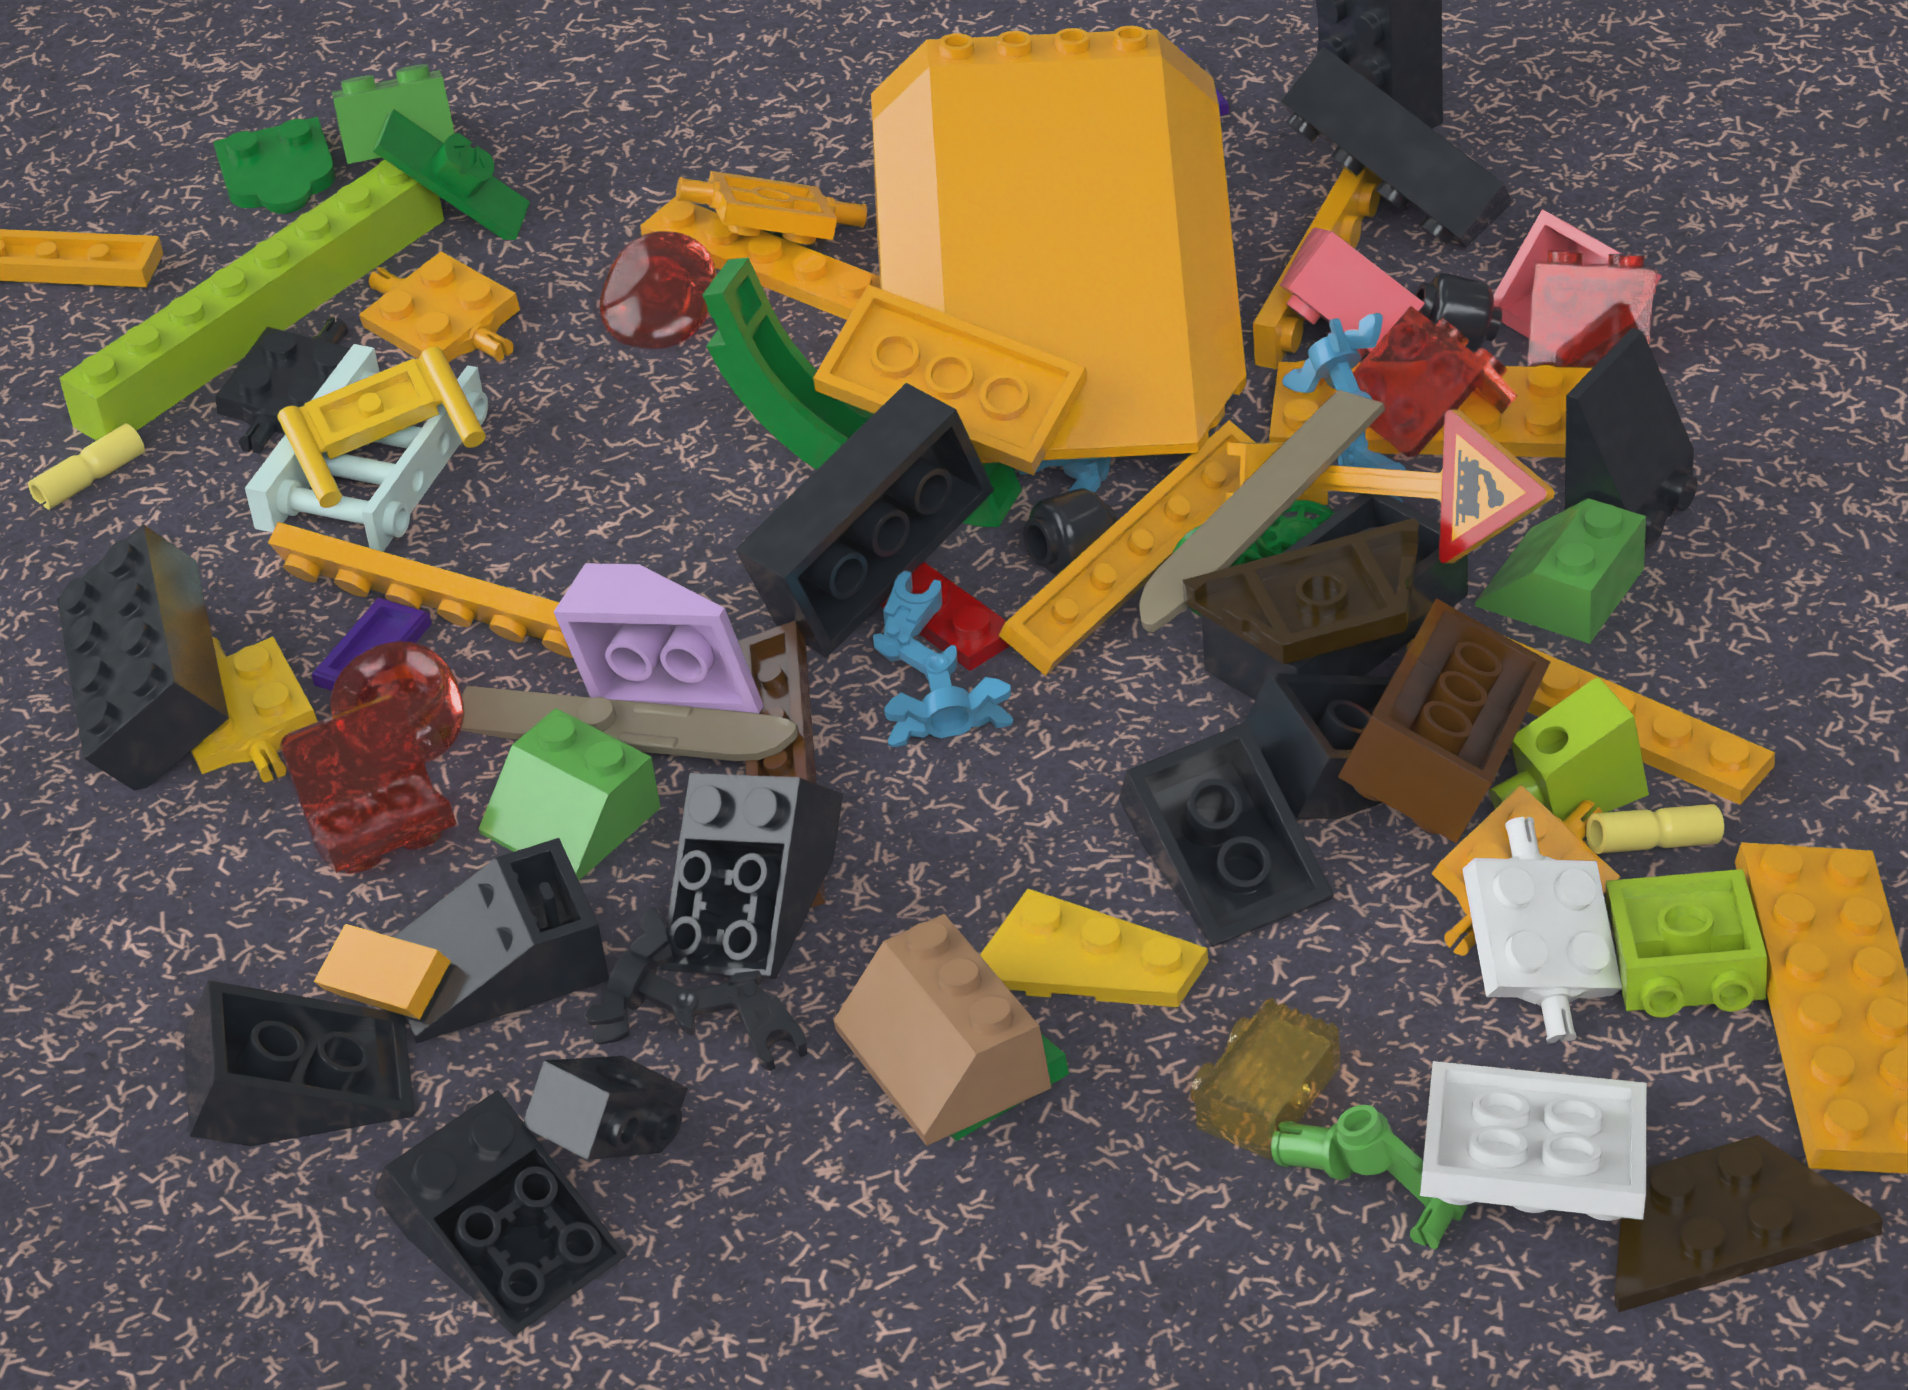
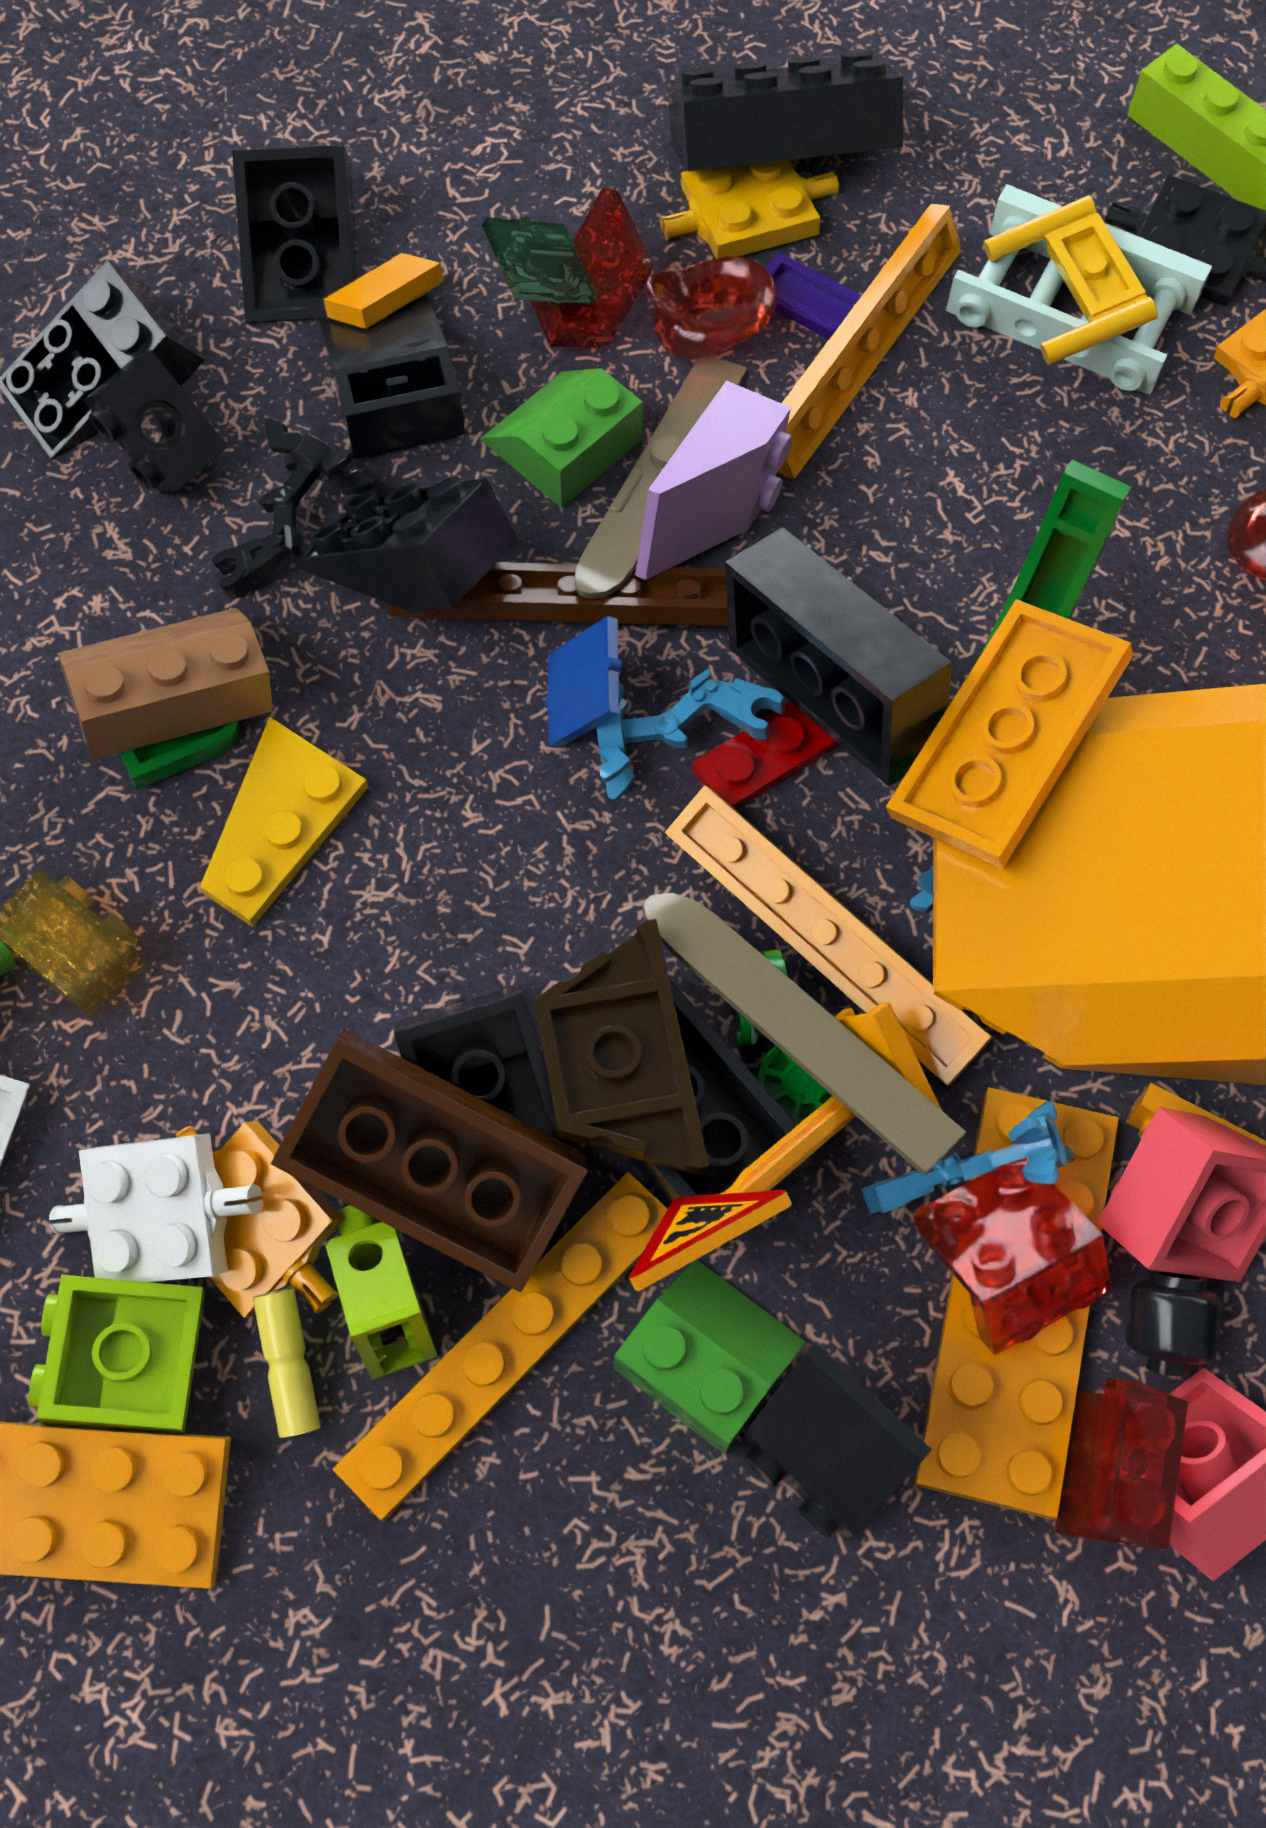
camera: 90 degrees right, 25 degrees up
(92, 463) = (1087, 88): light yellow piece -> none
(350, 829) = (539, 261): none -> clear green piece
(901, 722) = (583, 683): none -> blue piece
(1065, 527) = (855, 868): black head -> none
(1223, 835) = (381, 949): black slope -> none

